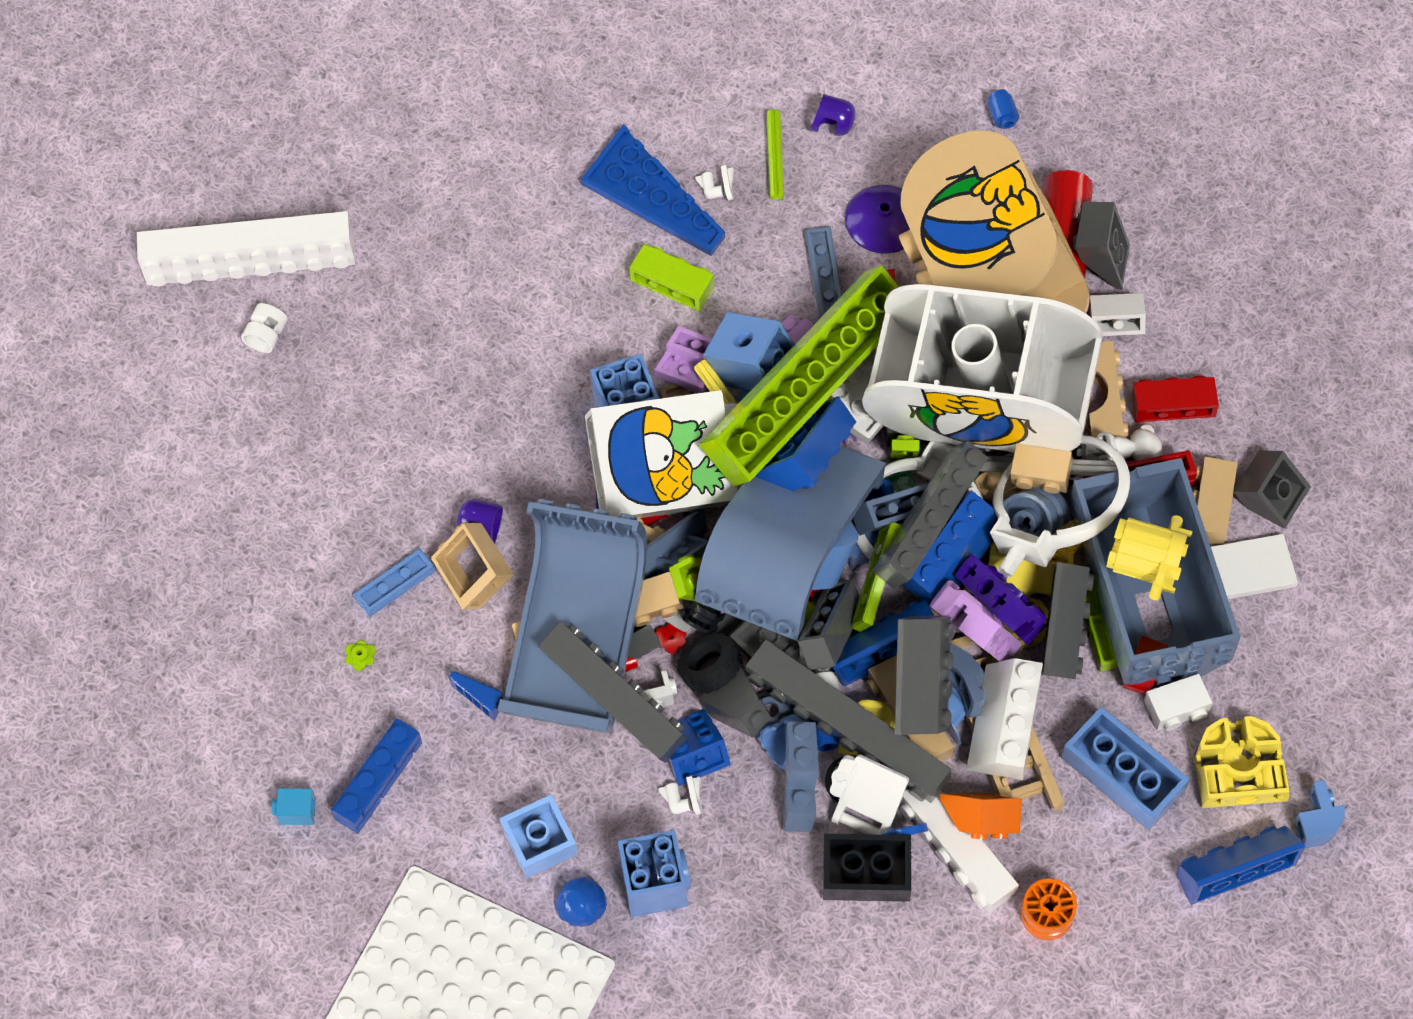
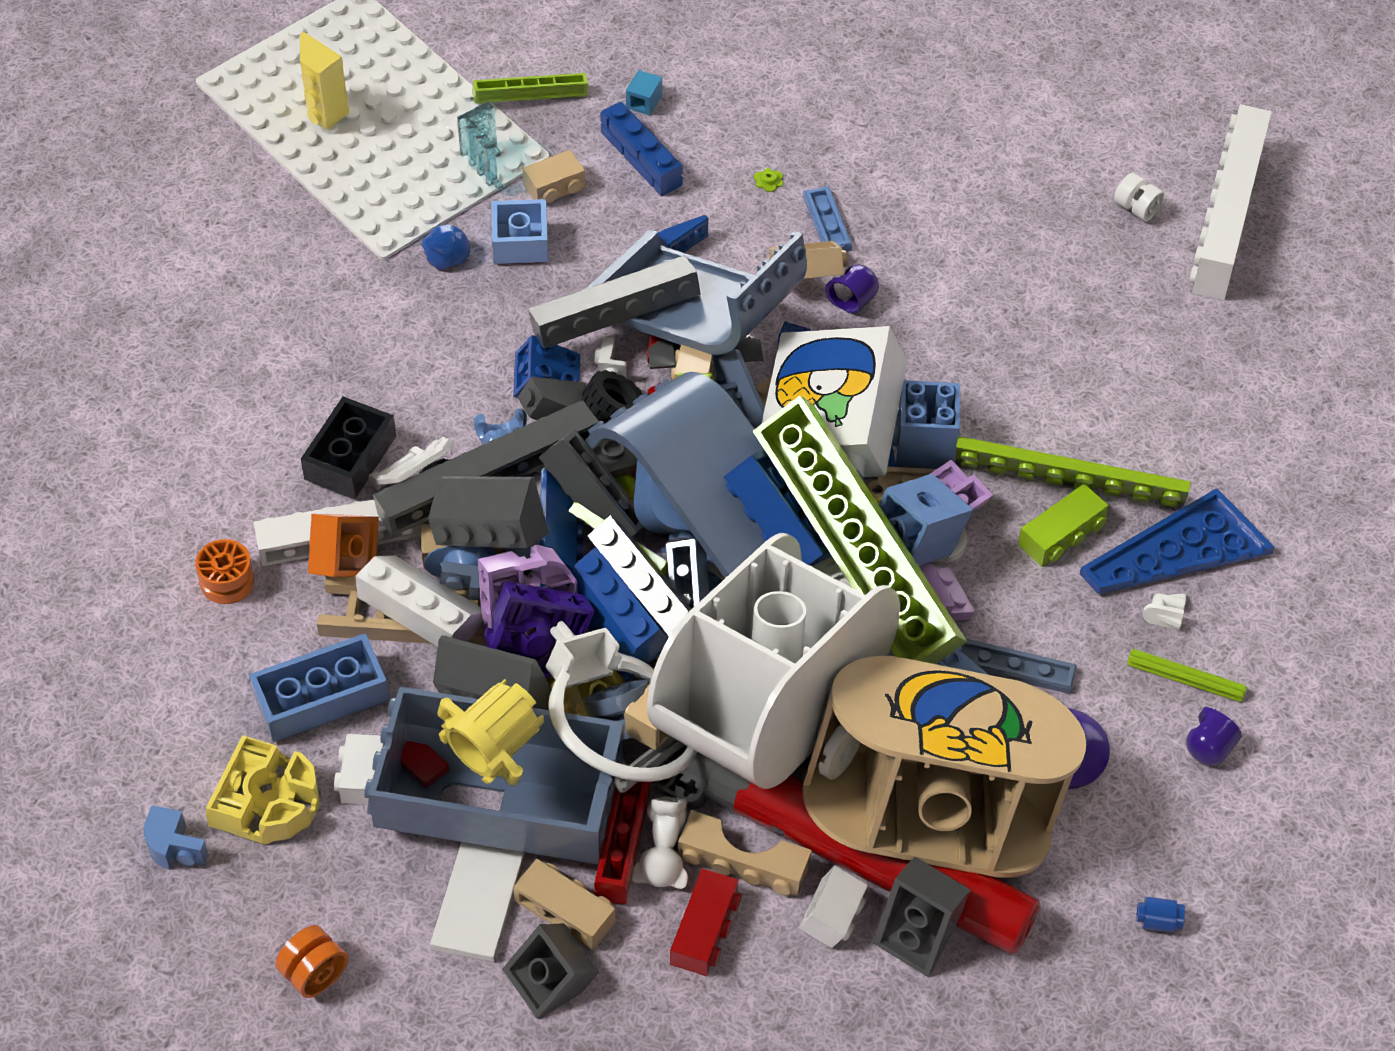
camera: 110 degrees right, 10 degrees down
(336, 916) = (529, 88): none -> lime piece
(442, 926) = (479, 141): none -> clear light blue plate
(449, 841) = (554, 177): none -> tan brick
(617, 274) = (1059, 469): none -> lime plate
(654, 873) = (433, 287): medium blue brick -> none
(676, 805) = (500, 352): white piece -> none
(800, 777) = (461, 416): sand blue arch -> none
(910, 830) = (362, 485): blue piece -> none
(1240, 863) = (167, 741): blue slope -> none
(1367, 651) = (311, 961): none -> orange wheel

